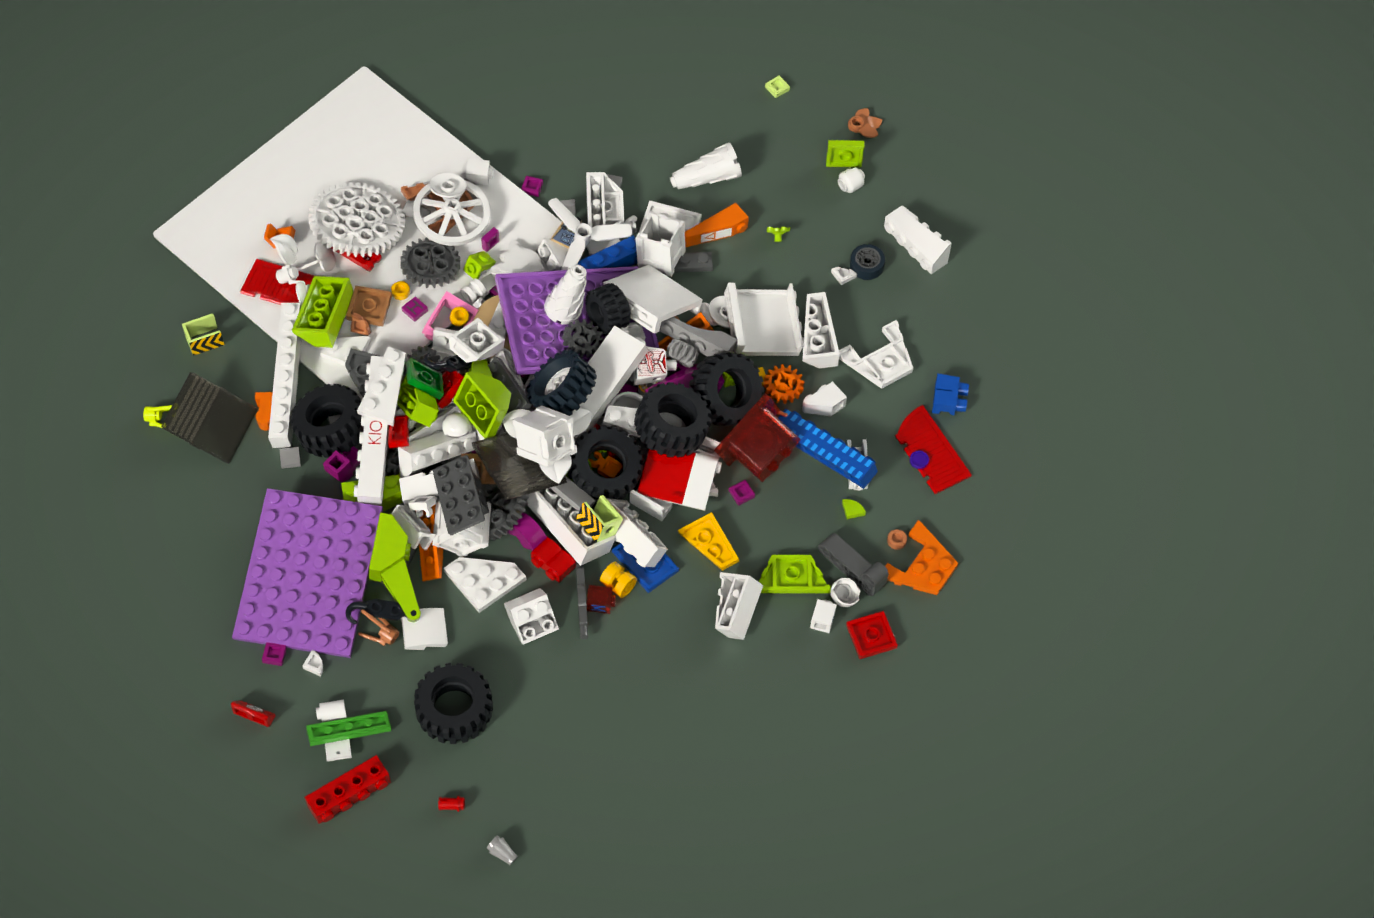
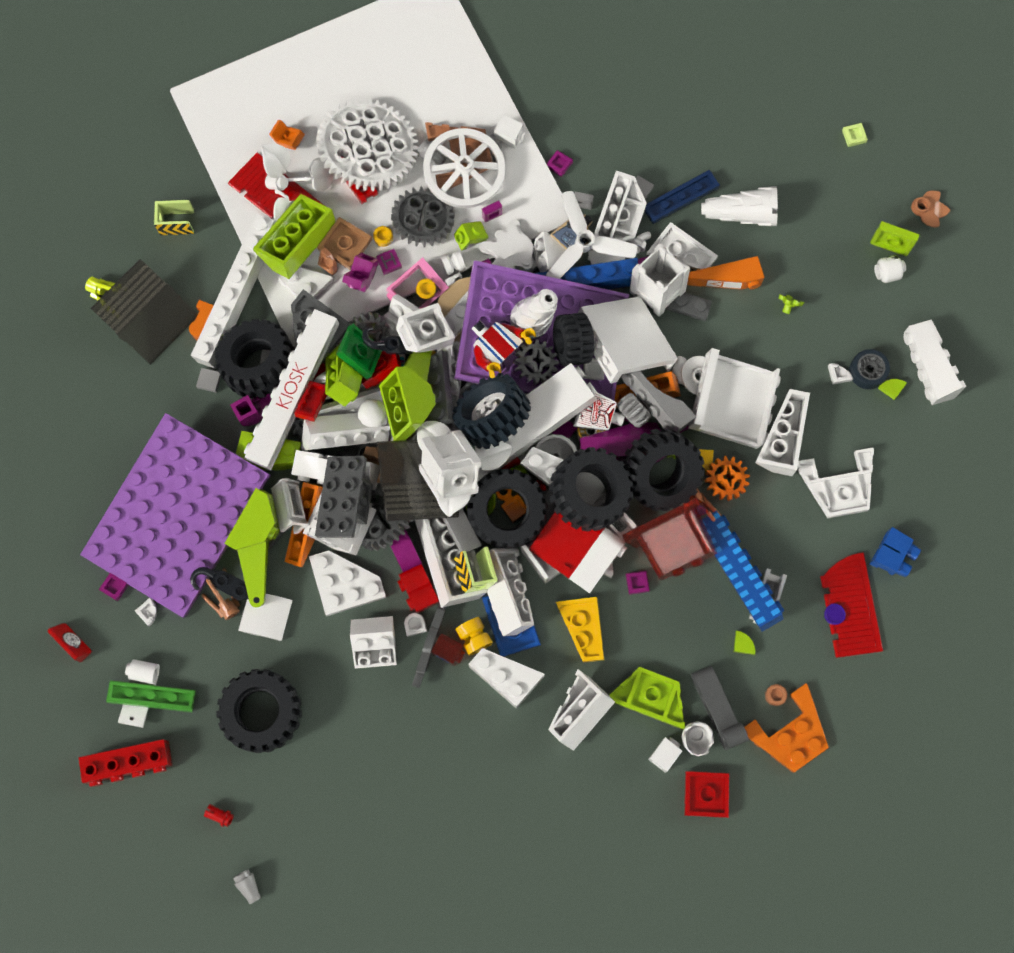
camera: 25 degrees right, 15 degrees up
(383, 392) = (313, 350): white wing -> none
(394, 323) = (361, 273): none -> magenta brick
(423, 503) = (307, 488): white tile -> none
(448, 185) = (468, 140): white dish -> none
(545, 331) = (497, 344): none -> torso
(561, 591) = (414, 624): none -> white tile
(650, 179) = (681, 196): none -> dark blue plate
(659, 601) = (506, 676): none -> white wedge
(825, 401) = (762, 514): white slope -> none
(892, 270) = (892, 387): none -> lime tile

